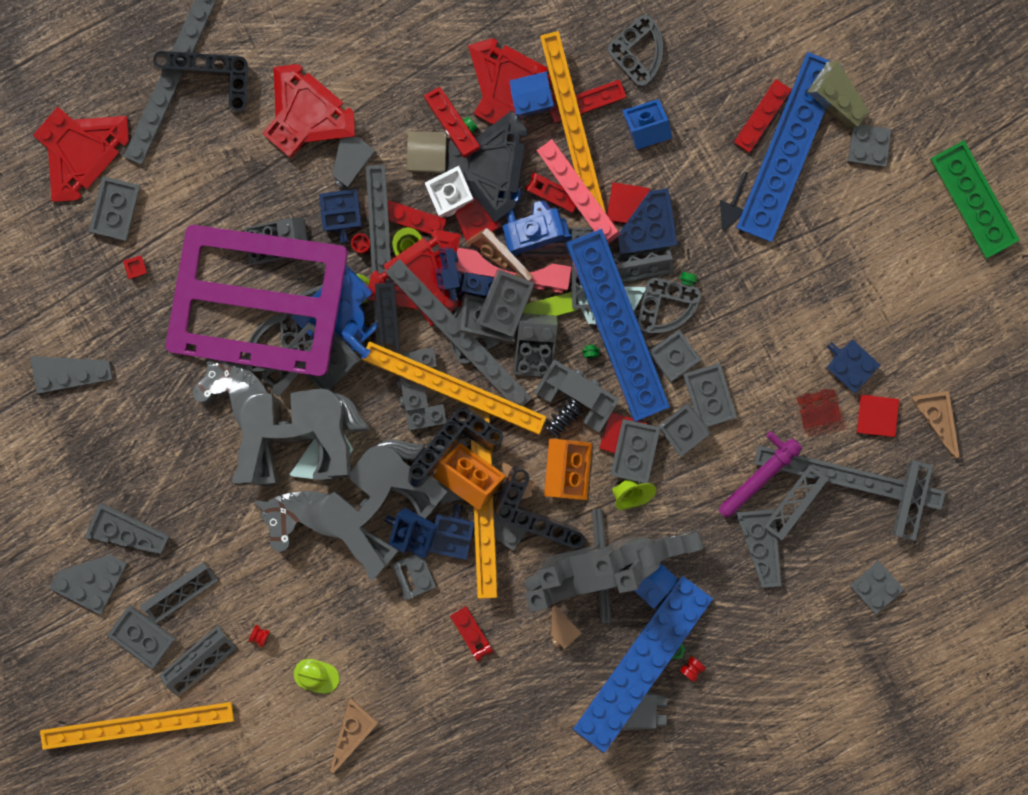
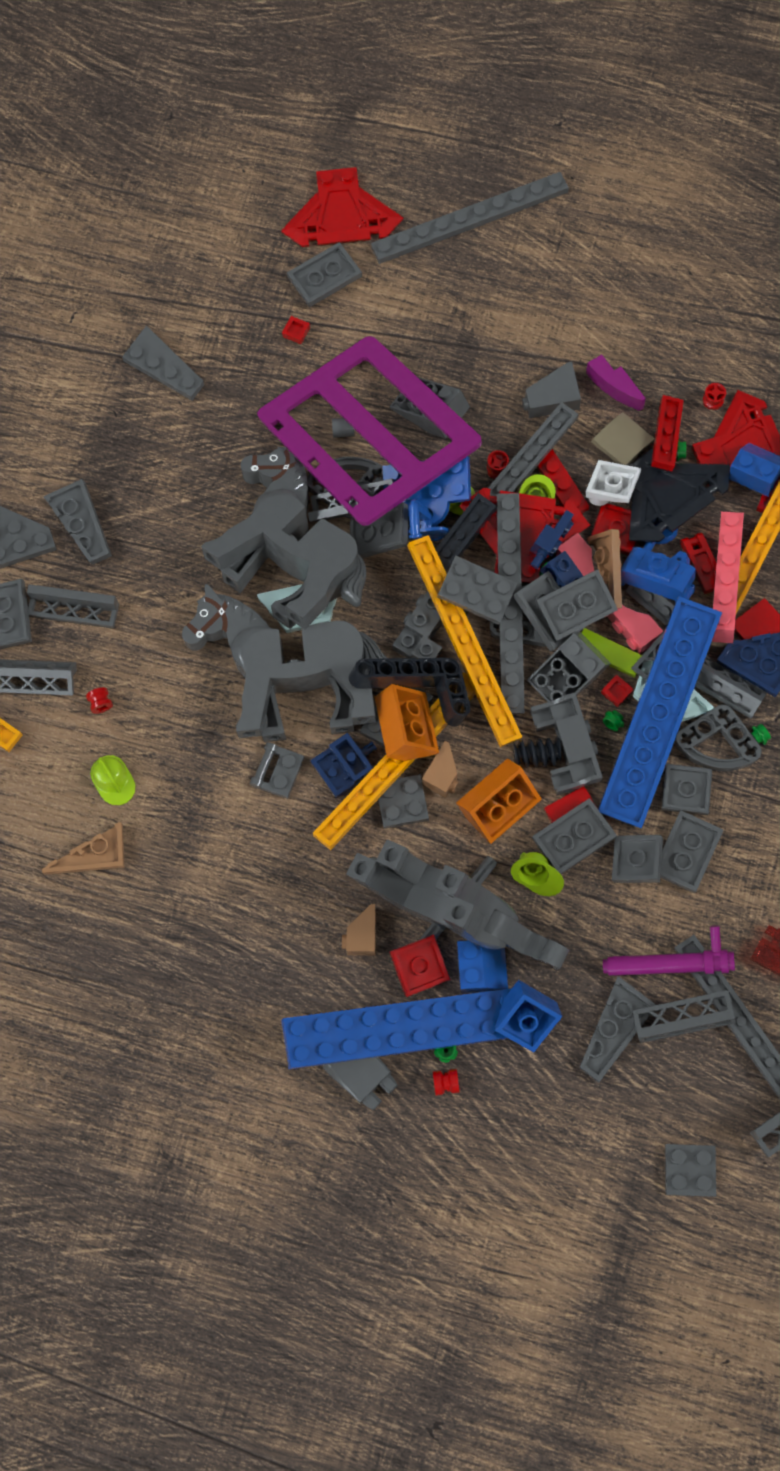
camera: 45 degrees right, 15 degrees down
(210, 69) = (502, 232): black beam -> none
(234, 312) = (342, 428): none -> dark grey beam
(305, 112) = (550, 327): red plate -> none
(340, 212) = (504, 426): dark blue plate -> none
(384, 114) = (615, 383): none -> magenta slope
(411, 533) = (310, 728): dark blue plate -> none
(433, 349) = (477, 590): none -> dark grey plate
(459, 62) = (718, 392): none -> red wheel
(471, 633) = (279, 864): red plate -> none
(532, 517) = (428, 808): black beam -> none
(576, 330) = (617, 691): none -> red plate
(614, 615) = (419, 965): none -> red tile
(706, 587) = (527, 1016): none -> blue slope

